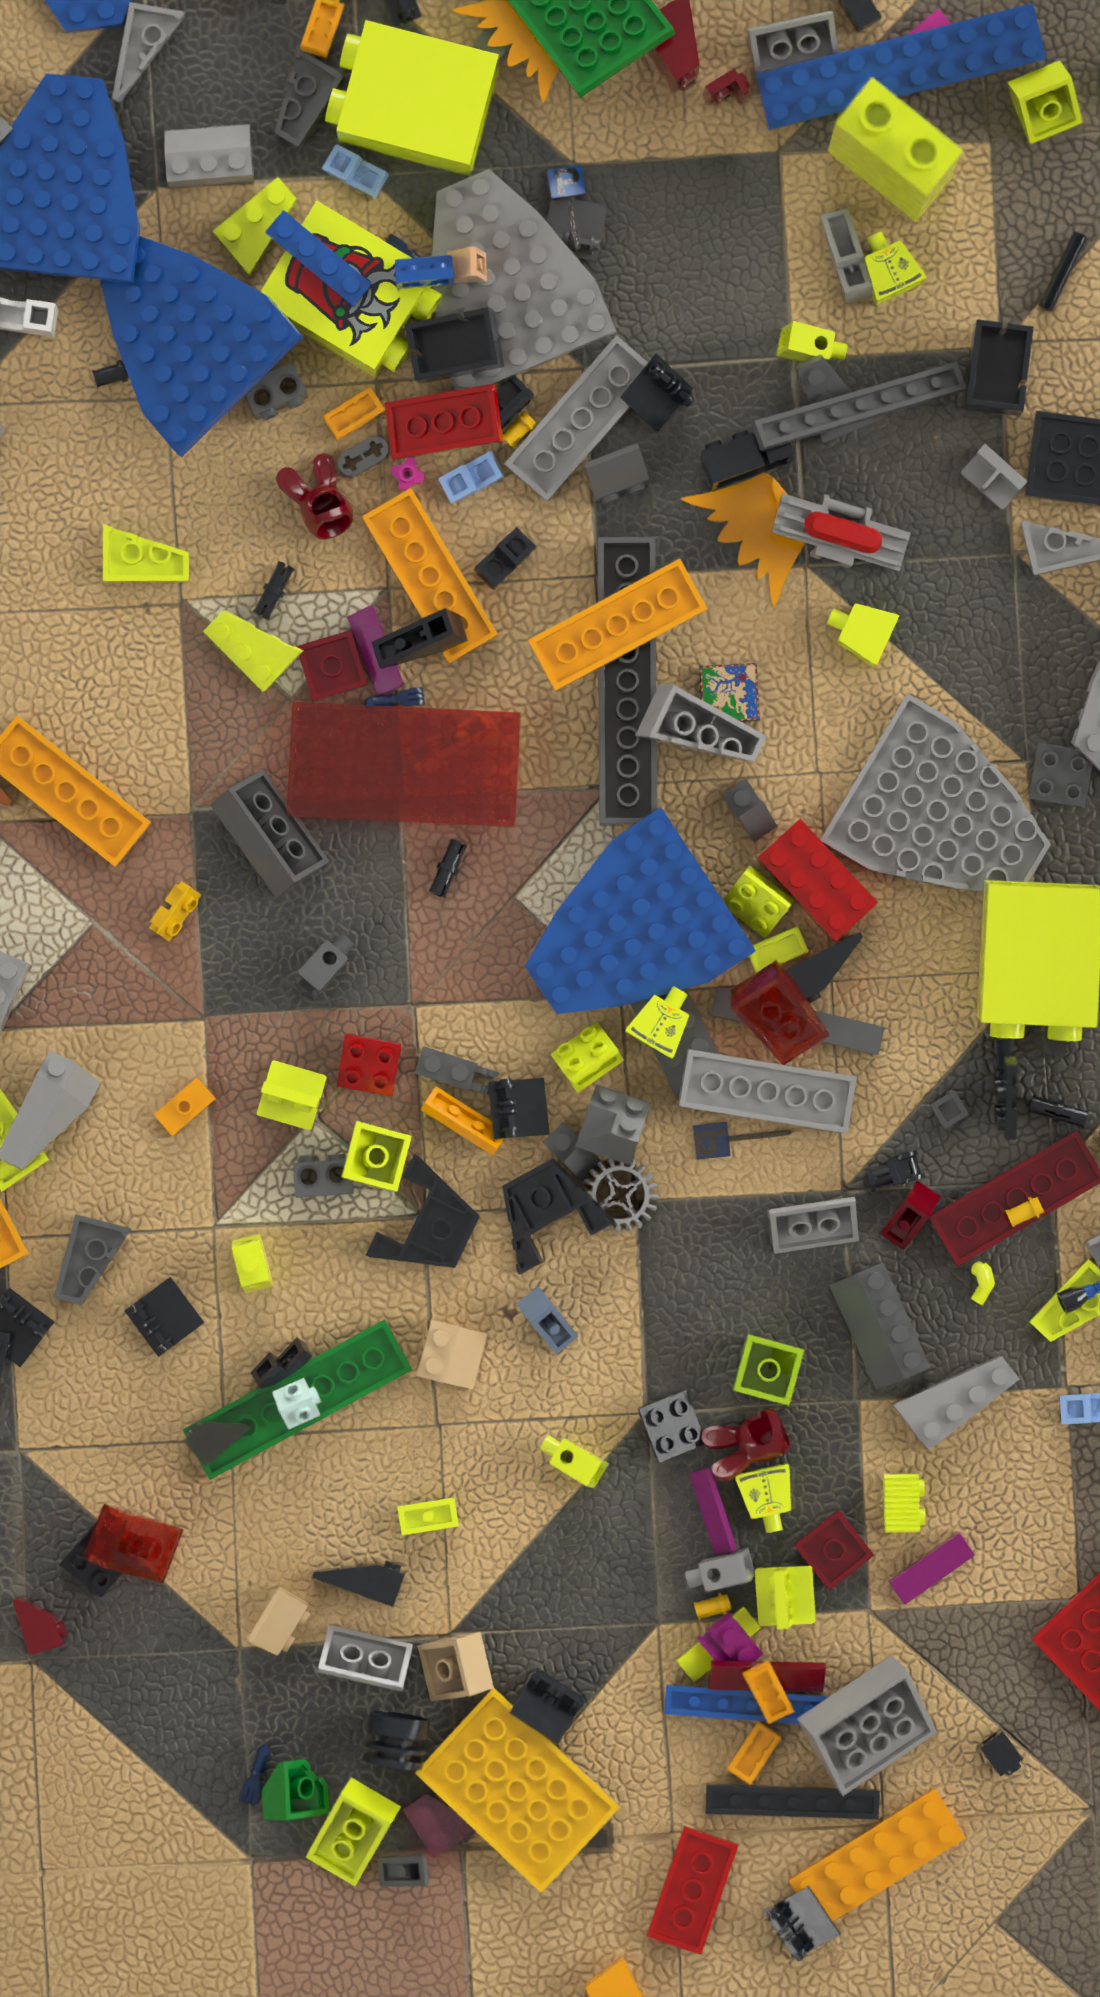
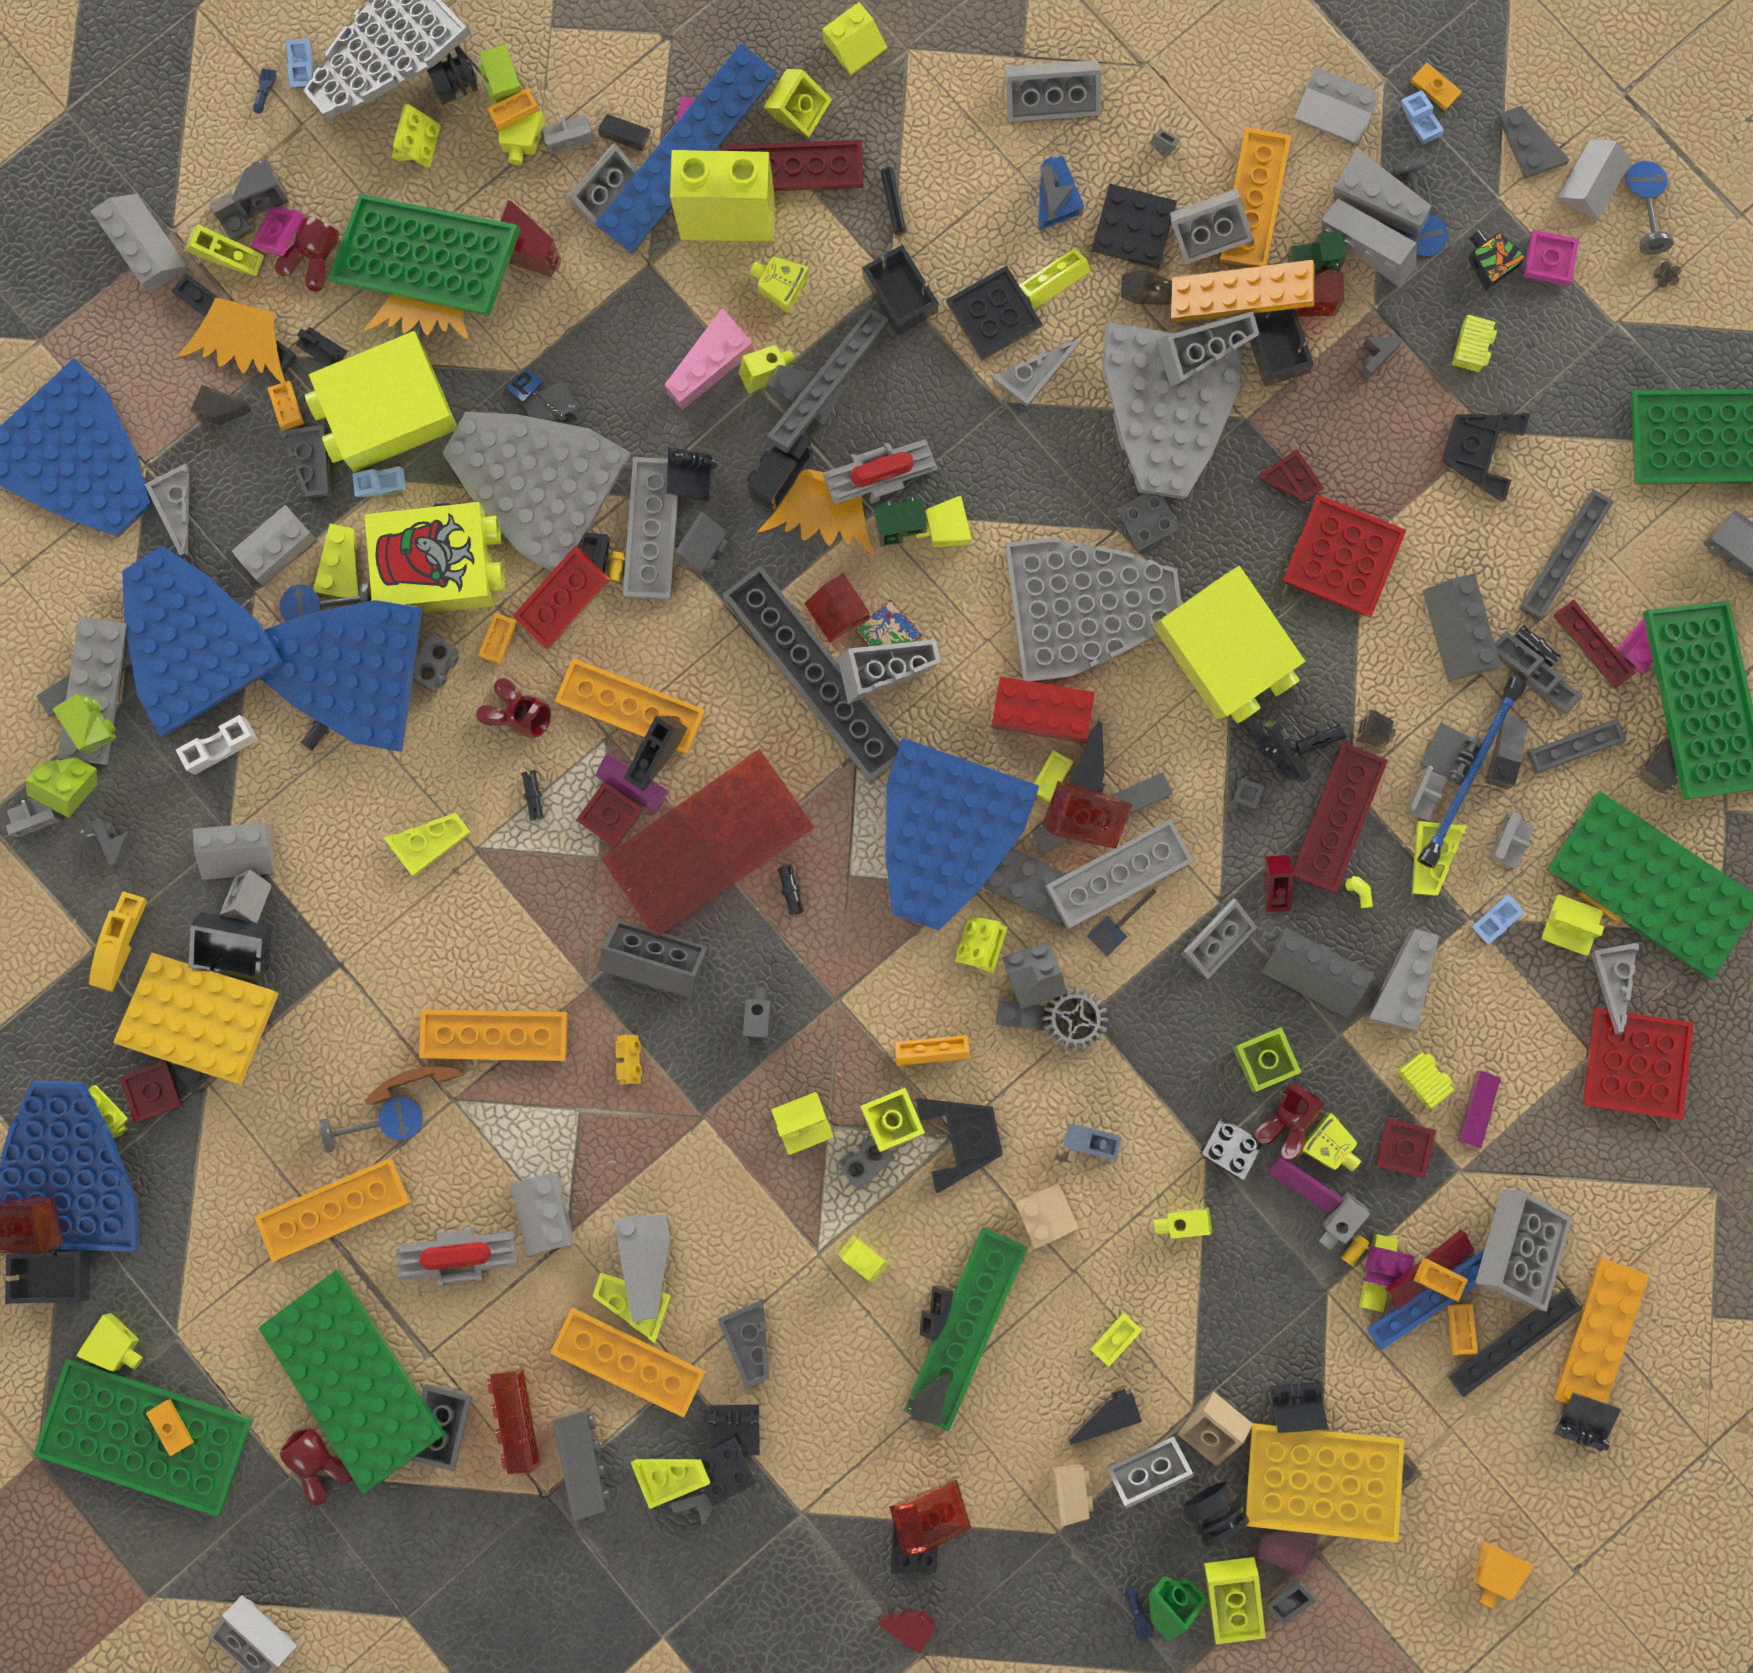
camera: 30 degrees left, 5 degrees down
(164, 1316) = (831, 1342): black hinge -> none
(184, 1106) = (736, 1187): light orange plate -> none
(196, 235) = (303, 600): none -> piece
(252, 650) = (547, 845): neon yellow wing -> none
(297, 1403) = (968, 1331): light aqua brick -> none
(318, 258) = (394, 550): blue plate -> none
(359, 451) = (520, 660): dark grey beam -> none
(368, 1064) = (839, 1062): red hinge -> none
(405, 698) = (678, 796): dark blue piece -> none
(408, 466) = (557, 653): dark pink plate -> none
(424, 272) = (472, 505): blue bracket -> none
(452, 1070) = (898, 1022): dark grey hinge -> none
(454, 346) = (530, 542): black piece -> none
(469, 265) = (497, 483): light nougat slope -> none
(471, 477) = (608, 621): light blue slope -> none
(504, 558) = (671, 657): black slope -> none
(518, 1108) = (962, 1013): black hinge -> none
(542, 1199) = (1025, 1064): black wing -> none
(617, 625) = (779, 640): light orange plate -> none
(661, 1023) = (1014, 882): neon yellow torso -> none
(692, 1890) = (1495, 1457): red plate -> none
(701, 637) = (837, 608): none -> clear red slope
(720, 89) = (582, 239): dark red bracket -> none
(749, 810) = (961, 698): dark grey slope -> none
(757, 902) = (1014, 754): neon yellow bracket -> none
(764, 295) = (709, 360): none -> bright pink wedge
(785, 1596) = (1398, 1205): neon yellow bracket -> none
(821, 595) = (899, 521): none -> dark green brick
(847, 256) = (745, 294): light grey slope -> none
(897, 1171) = (1247, 859): black connector -> none
(993, 477) = (951, 362): light grey panel -> none
(1001, 166) = (811, 164): none -> dark red plate
(1001, 1753) = (1626, 1198): black brick -> none
(1025, 1211) = (1353, 821): yellow pin -> none

